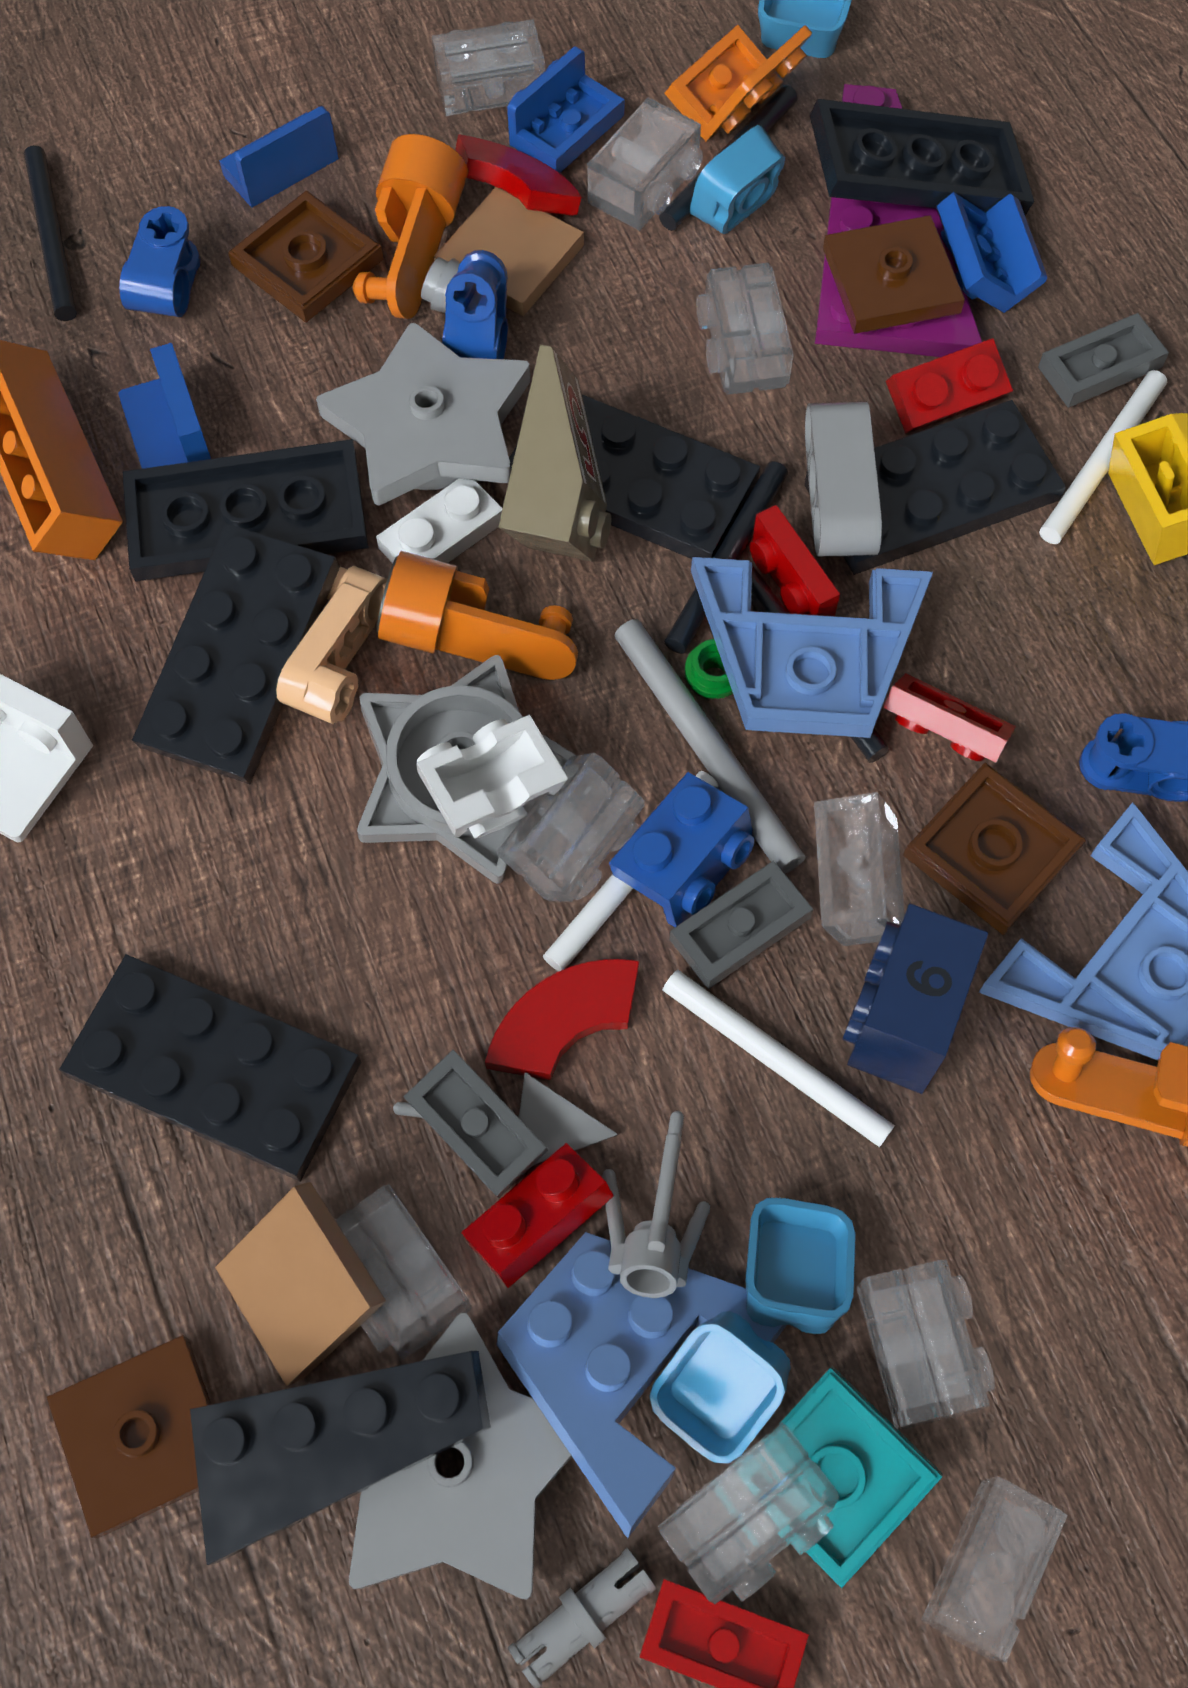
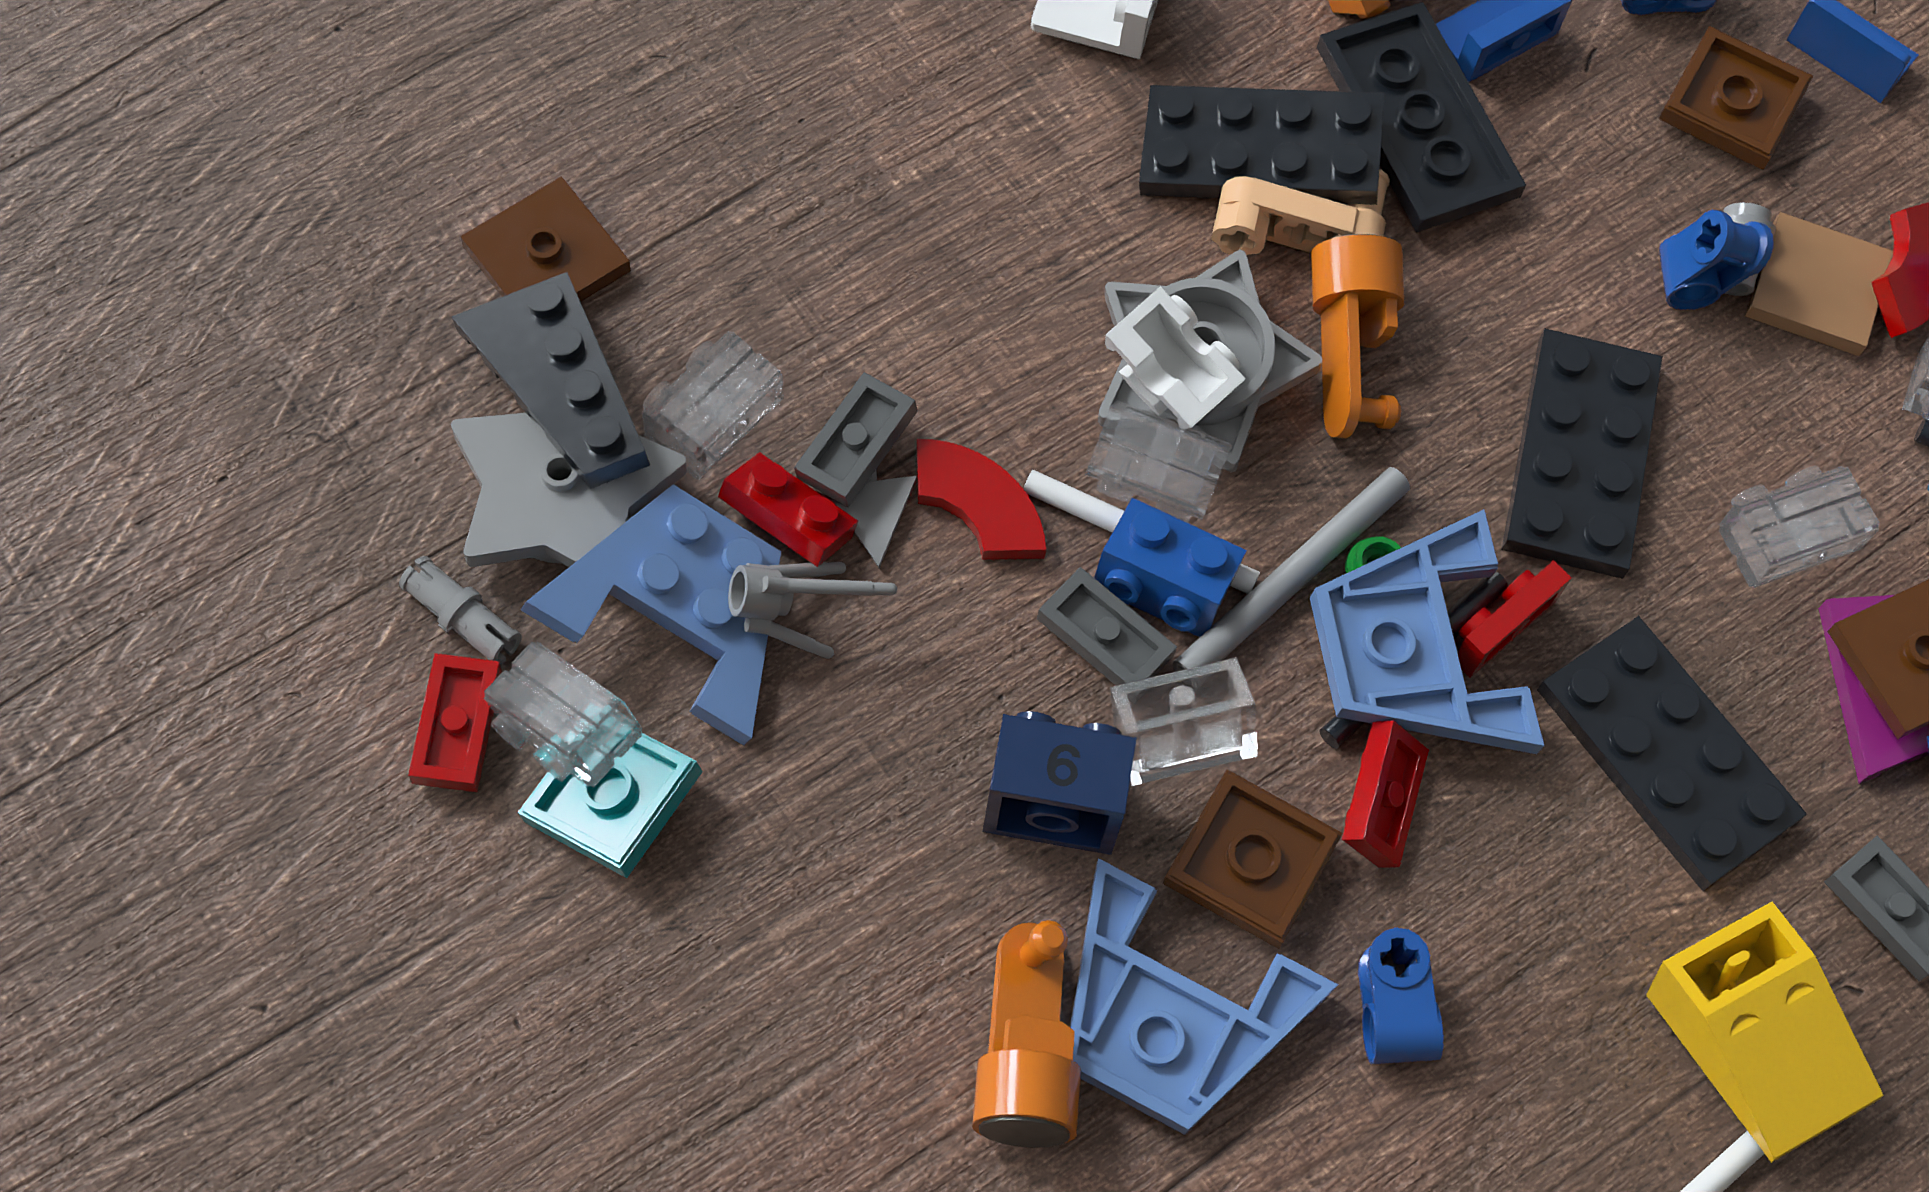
camera: 70 degrees right, 0 degrees up
(212, 1066) = (863, 229): black plate -> none
(299, 1283) = (685, 329): medium nougat tile -> none
(414, 206) = (1828, 175): orange piece -> none
(429, 416) = (1575, 246): light grey plate -> none
(444, 523) = (1460, 291): white plate -> none
(555, 480) = (1538, 354): dark tan slope -> none
(721, 1387) = (668, 675): dark azure piece -> none
(730, 548) = (1520, 559): black bar -> none
(778, 1058) = (983, 693): white bar -> none
(799, 1265) = (785, 723): dark azure piece -> none
(842, 479) = (1624, 635): light grey beam -> none
(924, 1344) = (738, 849): clear brick -> none
(949, 385) = (1802, 746): red plate -> none
(994, 1568) = (552, 929): clear brick -> none
(1099, 461) = (1730, 910): white bar -> none

